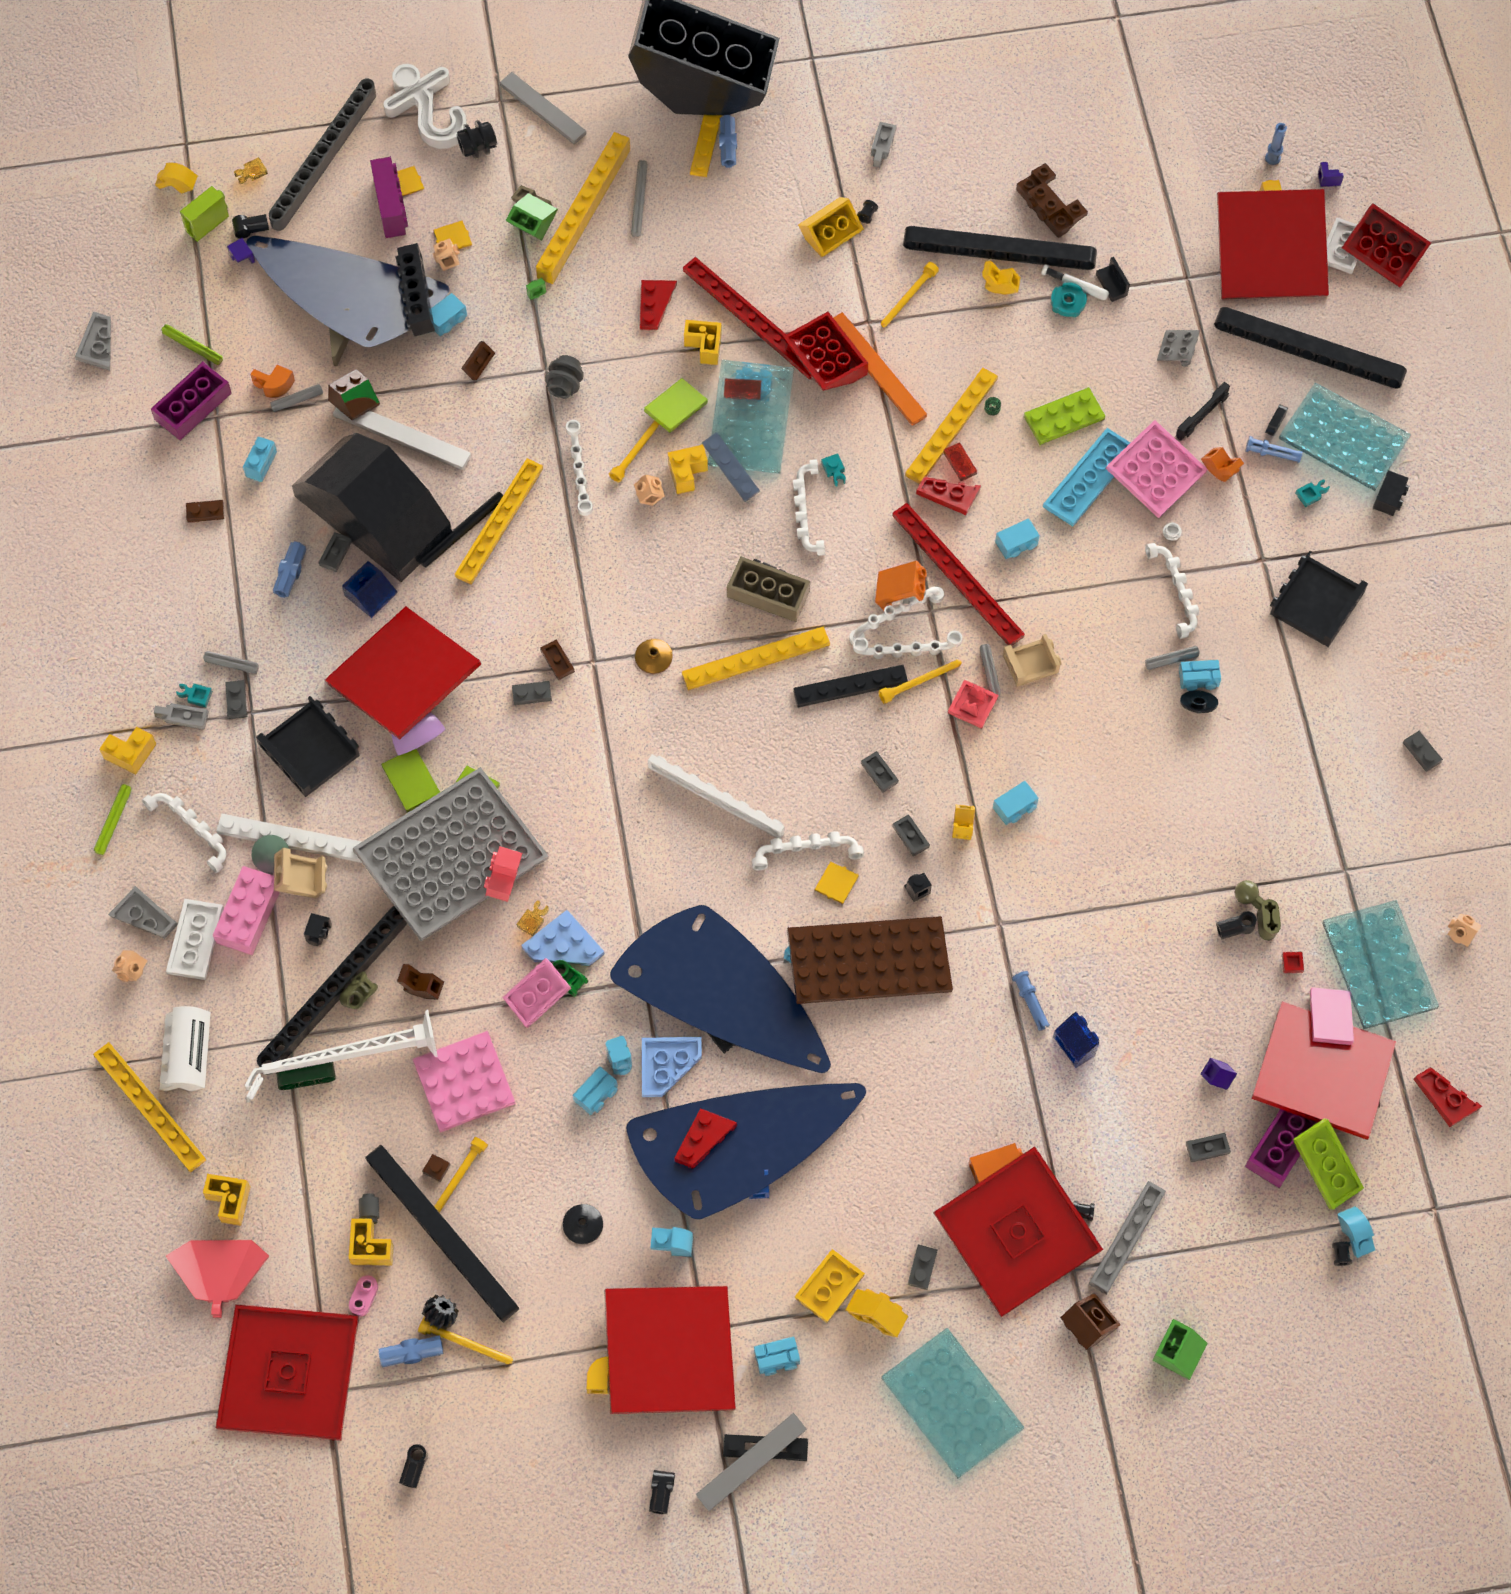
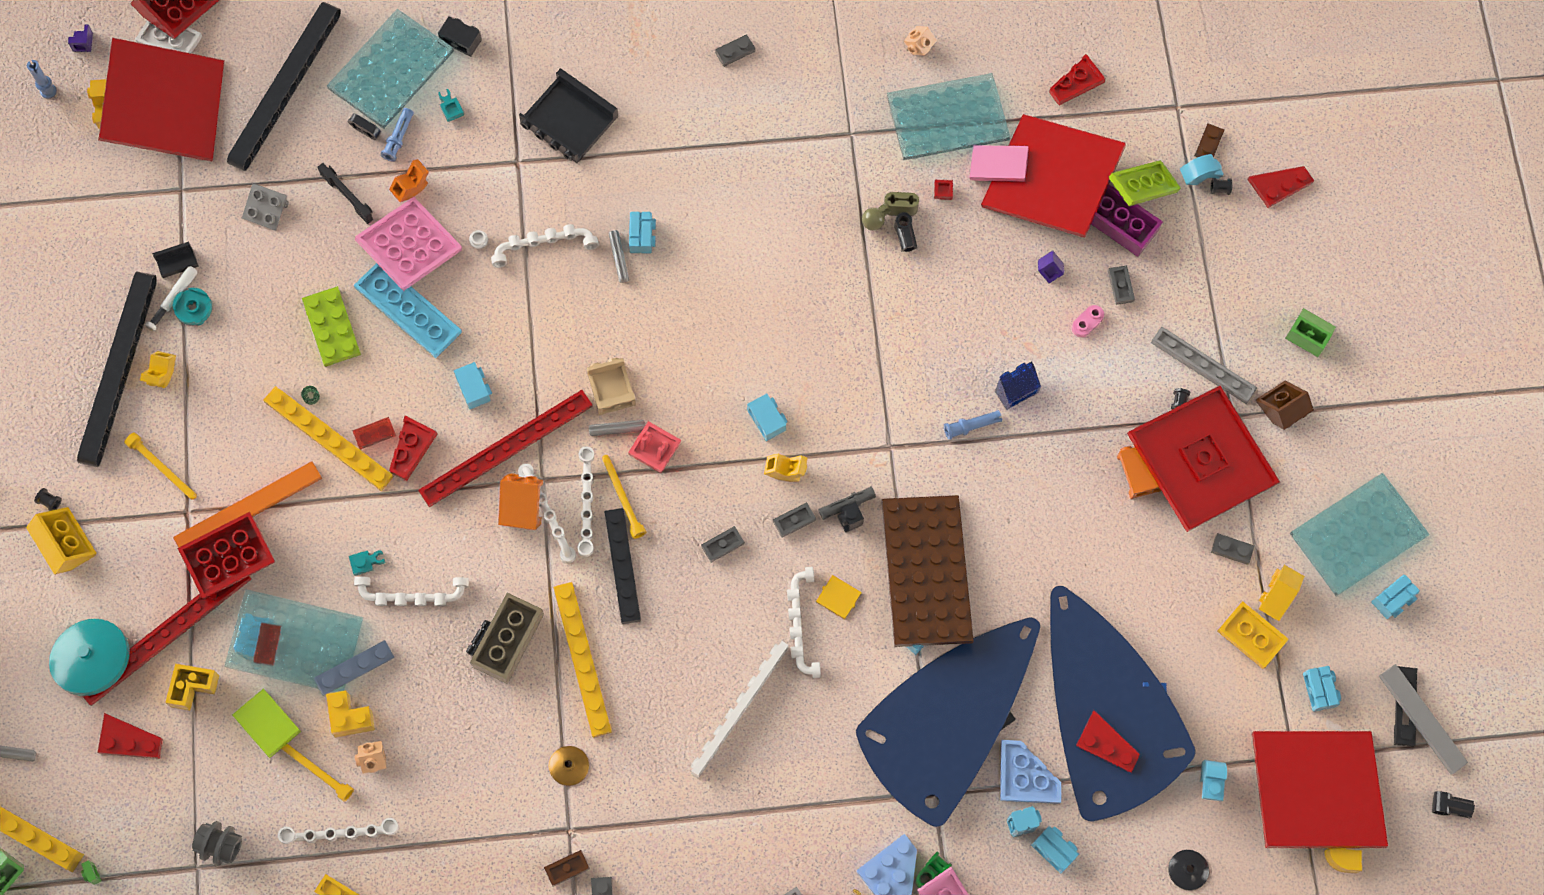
camera: 90 degrees left, 5 degrees up
(725, 261) = (89, 657): none -> teal dish
(883, 1437) = (1395, 597): none -> medium azure brick
(937, 890) = (835, 507): none -> dark grey pin
(1047, 204) = (68, 315): reddish brown bracket -> none
(1162, 1114) = (1089, 320): none -> bright pink plate
(1199, 701) = (671, 236): black dish -> none
(1356, 1321) = (1278, 185): none -> red wing
(1395, 1242) = (1209, 141): none -> reddish brown plate

